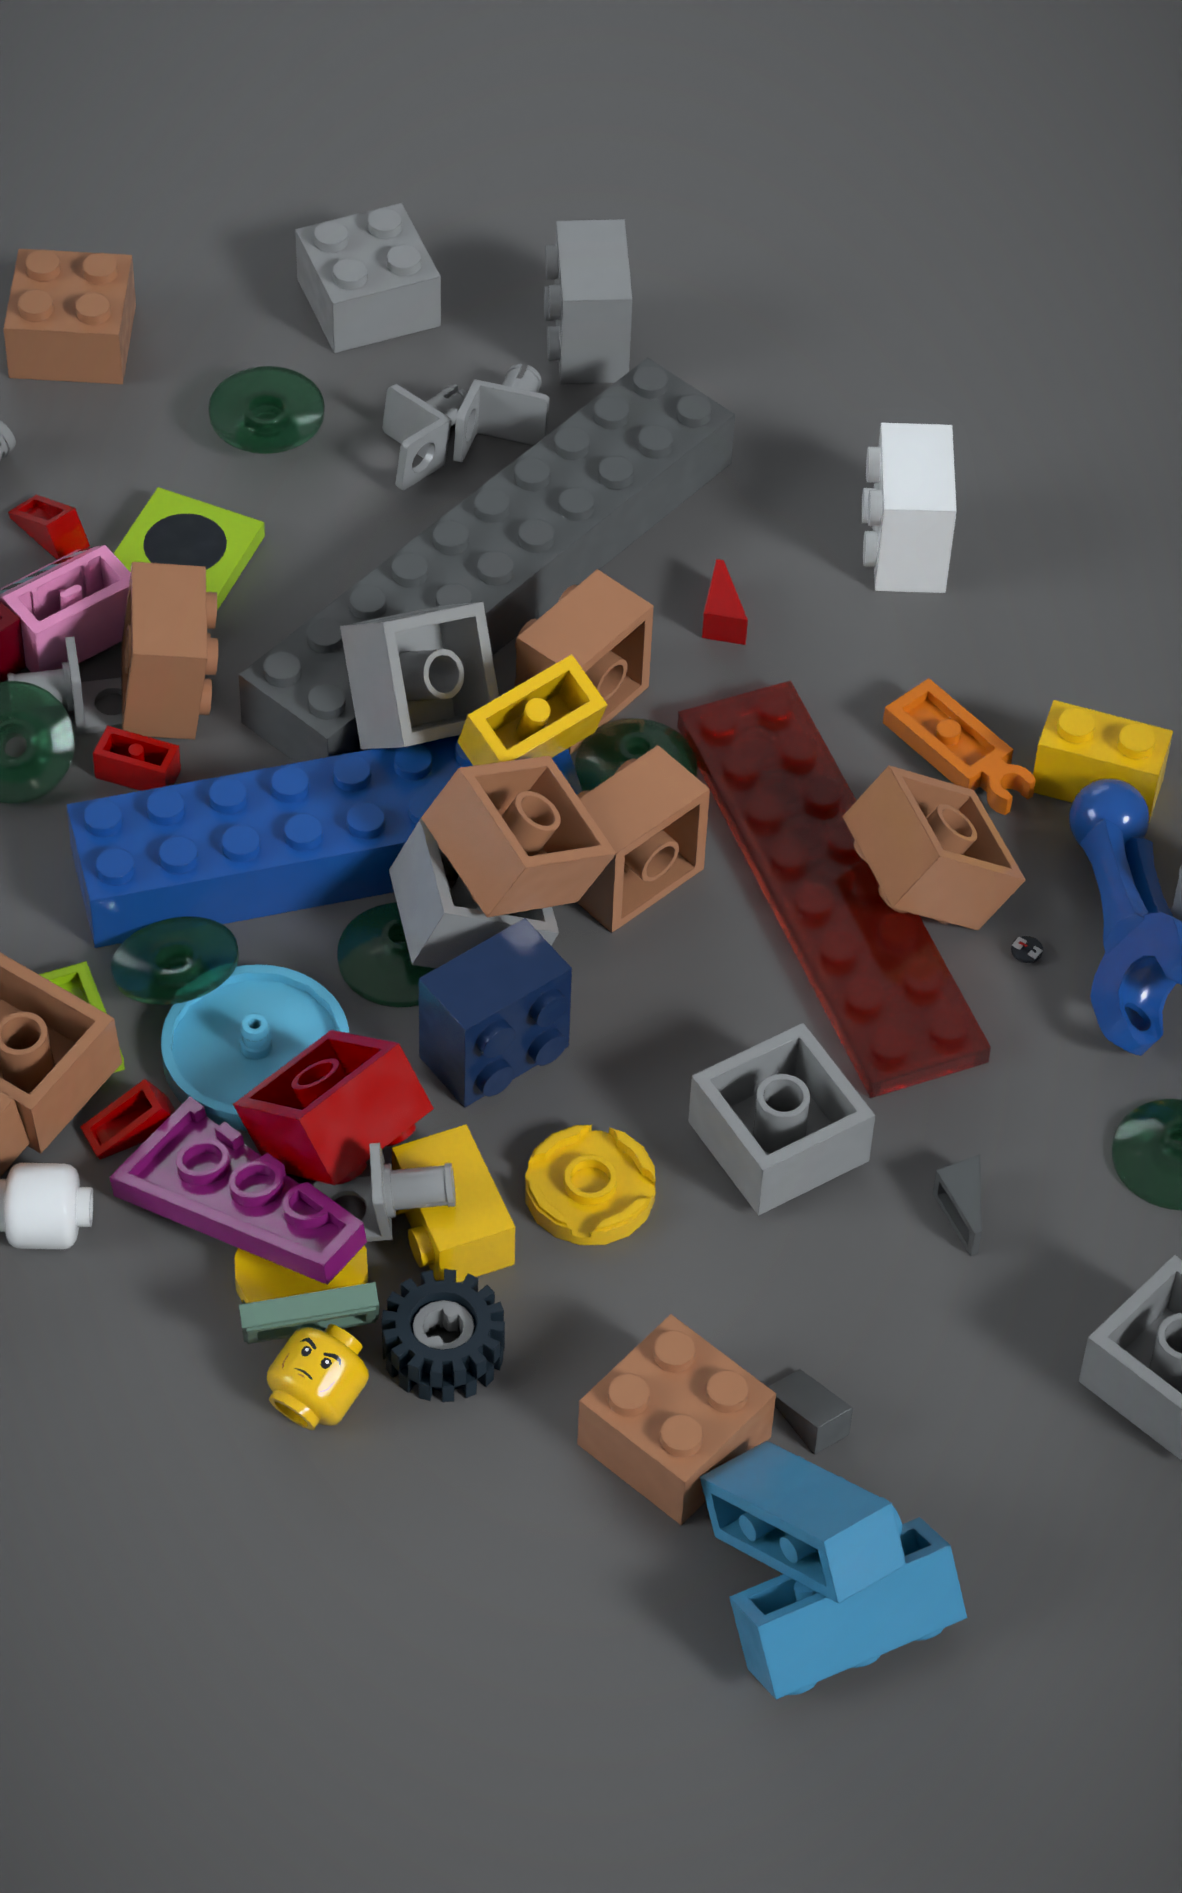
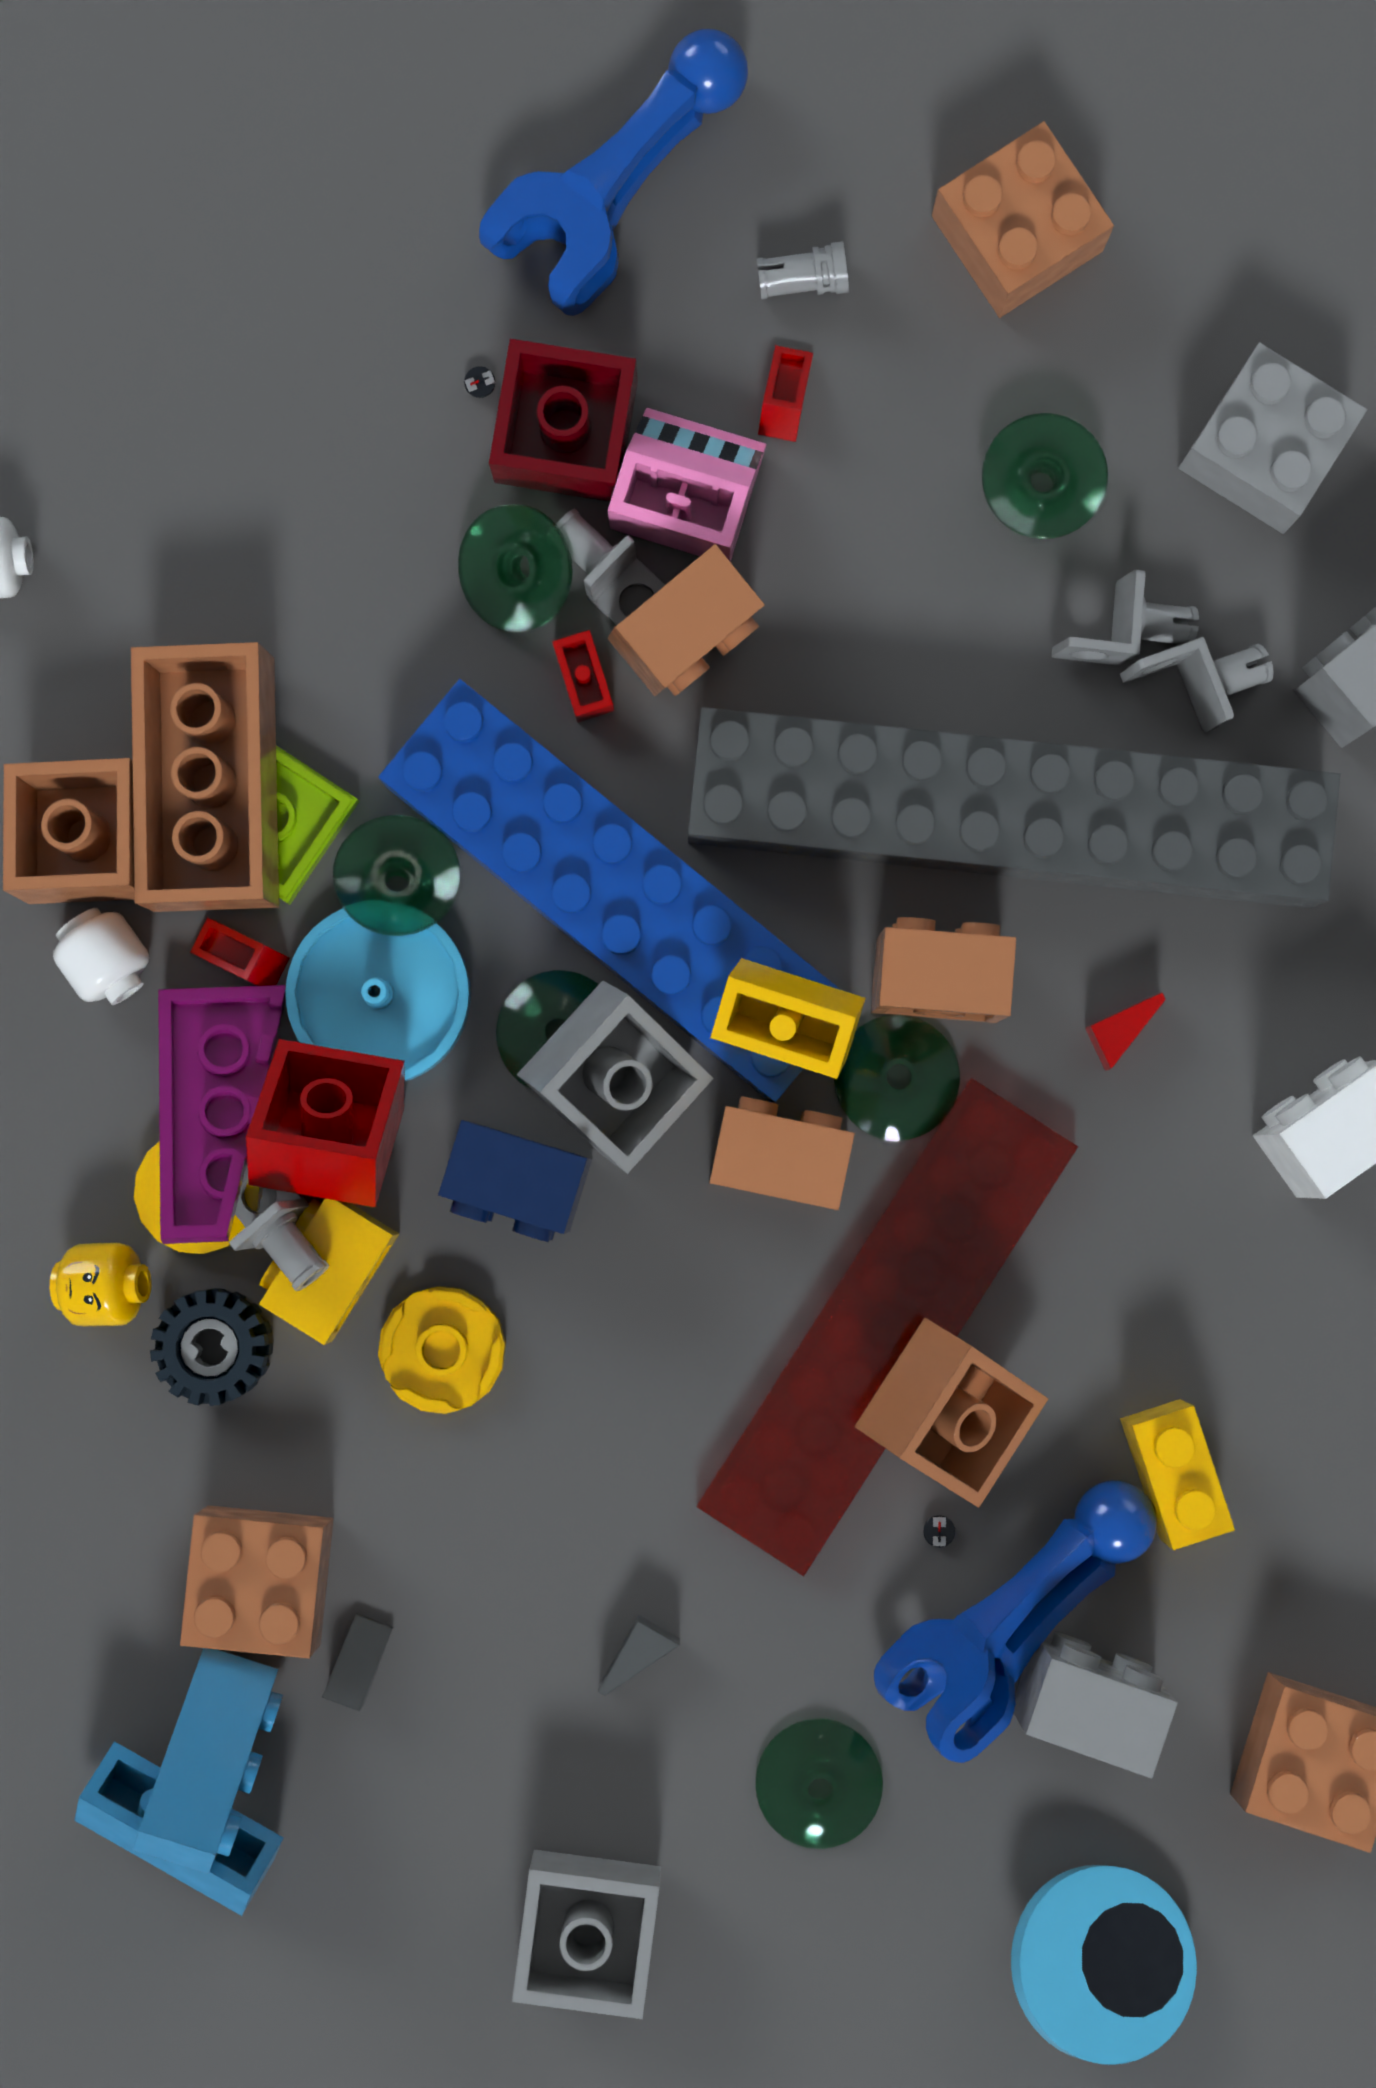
camera: 60 degrees right, 35 degrees up
(192, 534) = (842, 530): lime tile -> none
(283, 1316) = (135, 1244): sand green tile -> none
(418, 673) = (790, 874): light grey brick -> none
(518, 835) = (657, 1097): nougat brick -> none
(781, 1118) = (589, 1471): light grey brick -> none
(958, 744) = (1112, 1333): orange plate -> none

